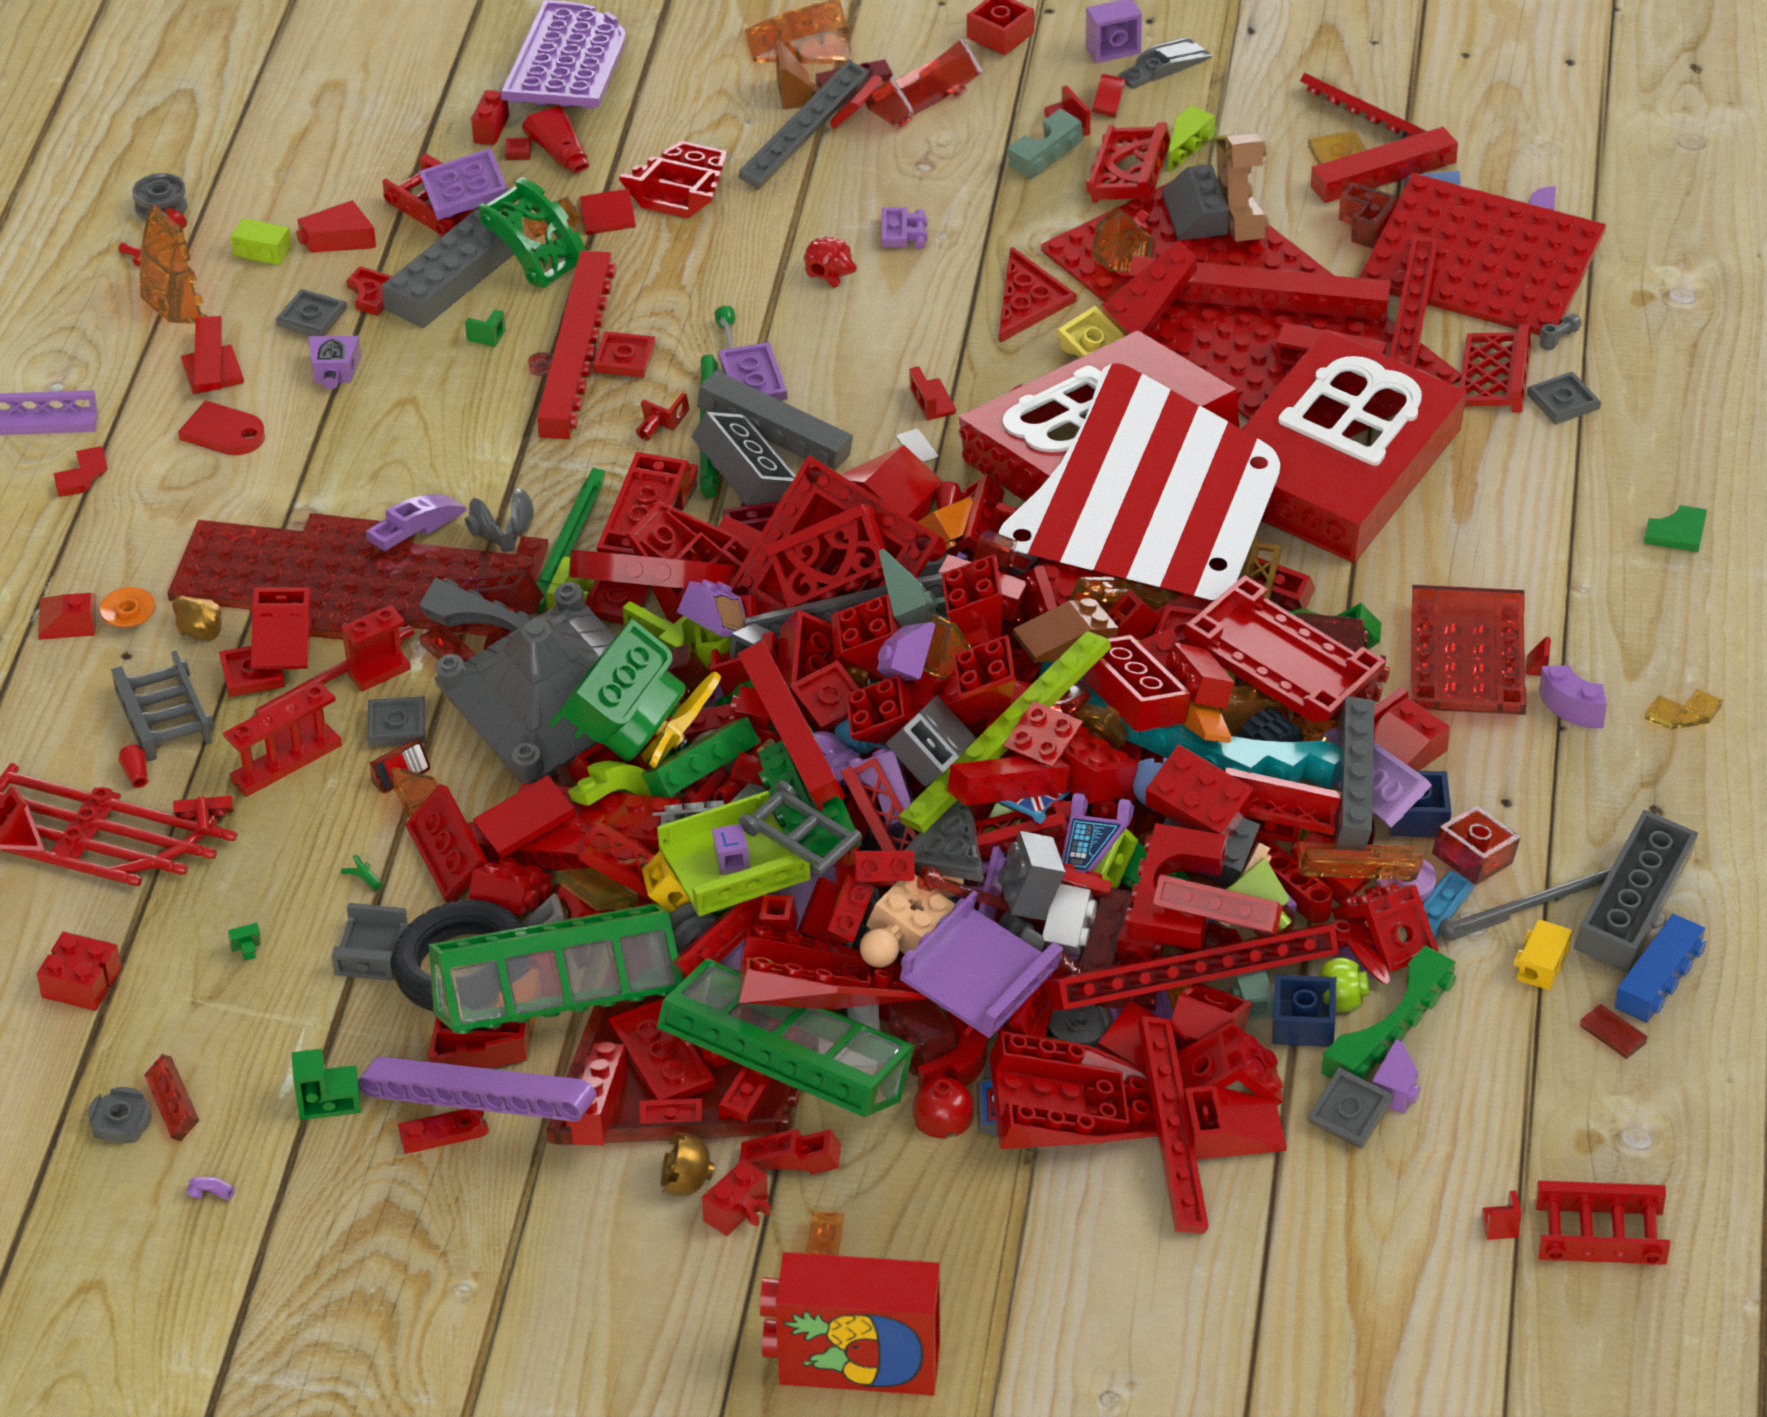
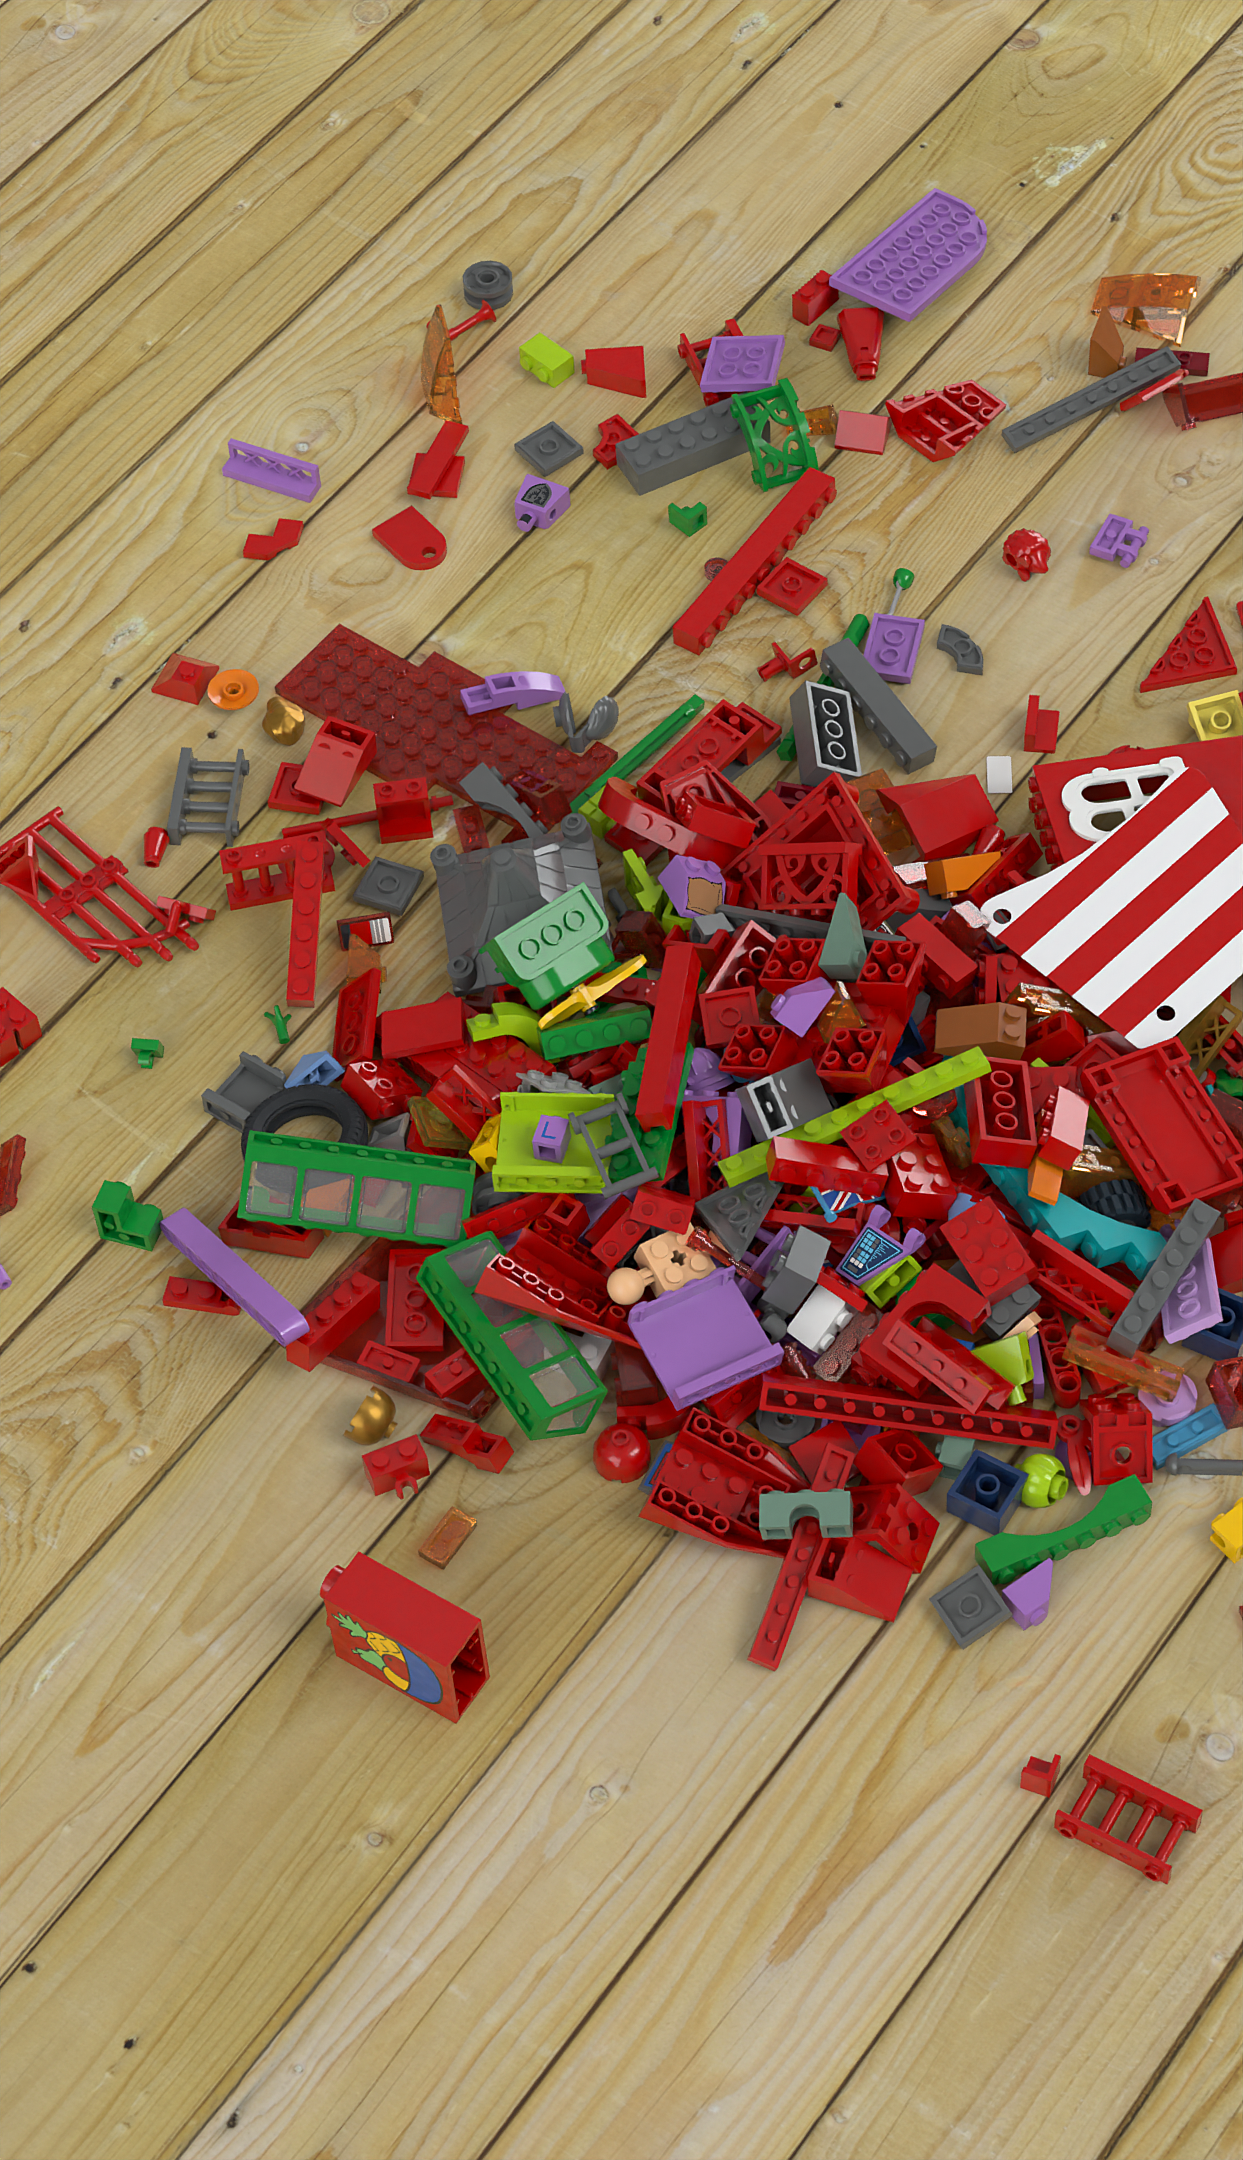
camera: 30 degrees right, 10 degrees up
(348, 696) = (350, 849): none -> red plate
(348, 769) = (305, 924): none -> red brick
(432, 892) = (315, 1069): none -> medium blue slope
(701, 546) = (715, 819): none -> red window
(809, 354) = (962, 649): none -> dark grey tile
(1184, 1067) = (781, 1510): none -> sand green arch

